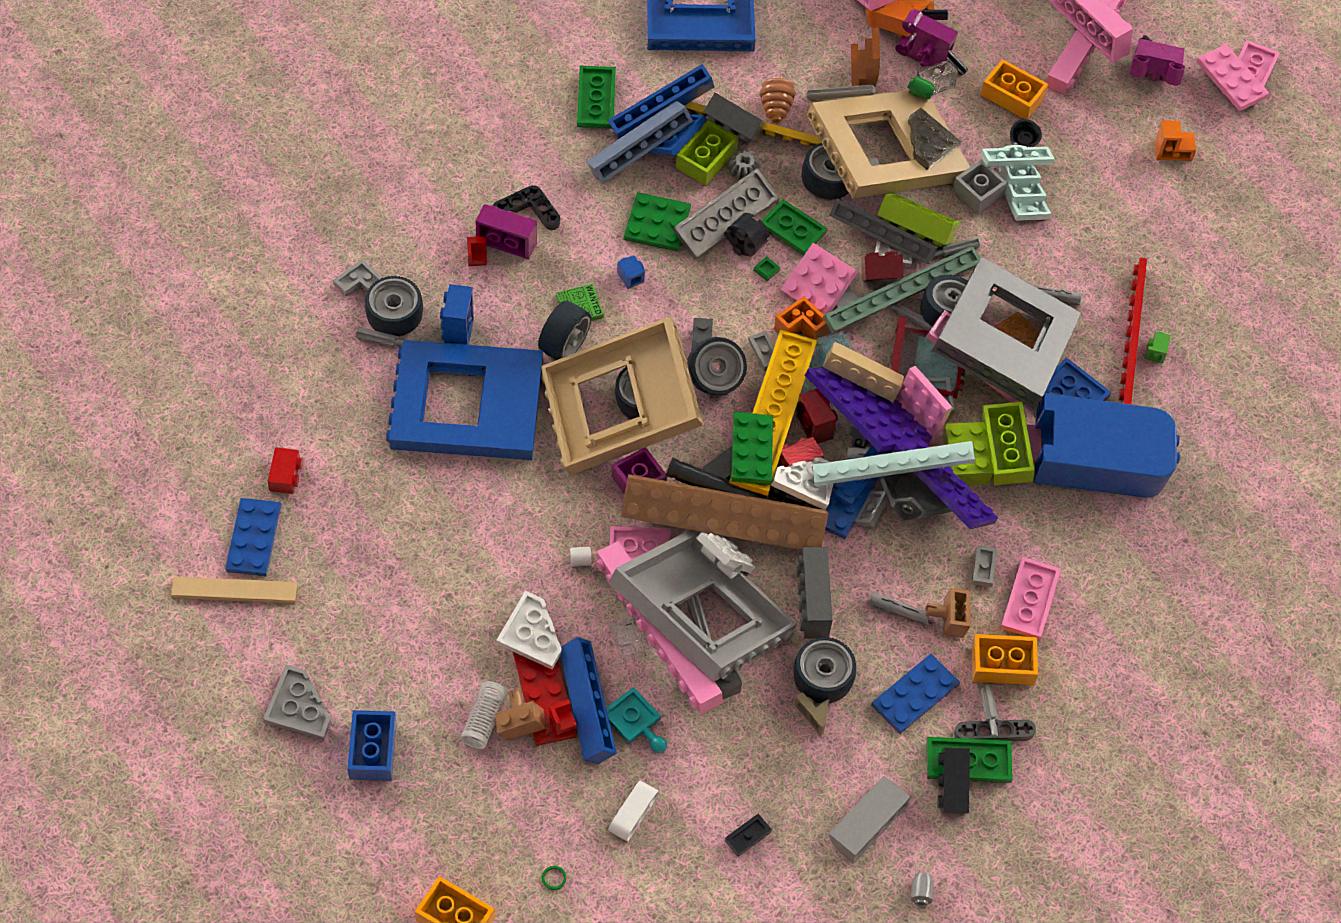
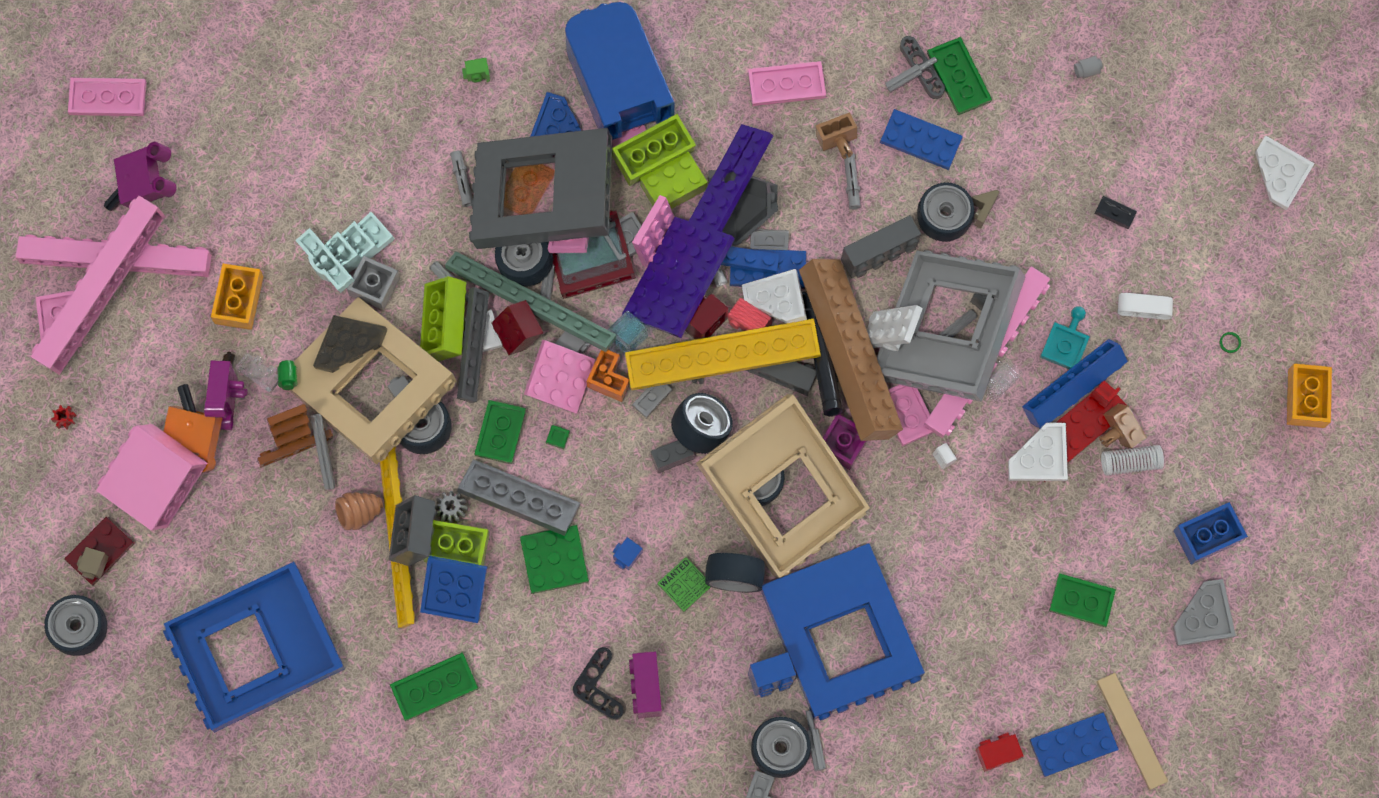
camera: 115 degrees left, 15 degrees up
(377, 606) = (1082, 600): none -> green plate
(477, 251) = (676, 706): red panel -> none
(639, 141) = (481, 610): sand blue brick -> none
(682, 89) = (426, 609): blue brick -> none
(747, 235) = (538, 464): black brick -> none
(752, 448) = (778, 350): green plate -> none
(863, 371) = (648, 292): tan brick -> none
(869, 819) = (1053, 126): light grey brick -> none
(893, 463) = (739, 223): light aqua plate -> none
(954, 780) = (989, 75): black brick -> none
(984, 566) = (779, 128): light grey plate -> none
(1004, 659) = (859, 79): light orange brick -> none
(1025, 133) = (291, 264): black helmet -> none
(1132, 331) = (473, 95): red plate -> none
(1174, 144) = (233, 133): orange brick -> none
(1232, 77) = (125, 107): bright pink plate -> none

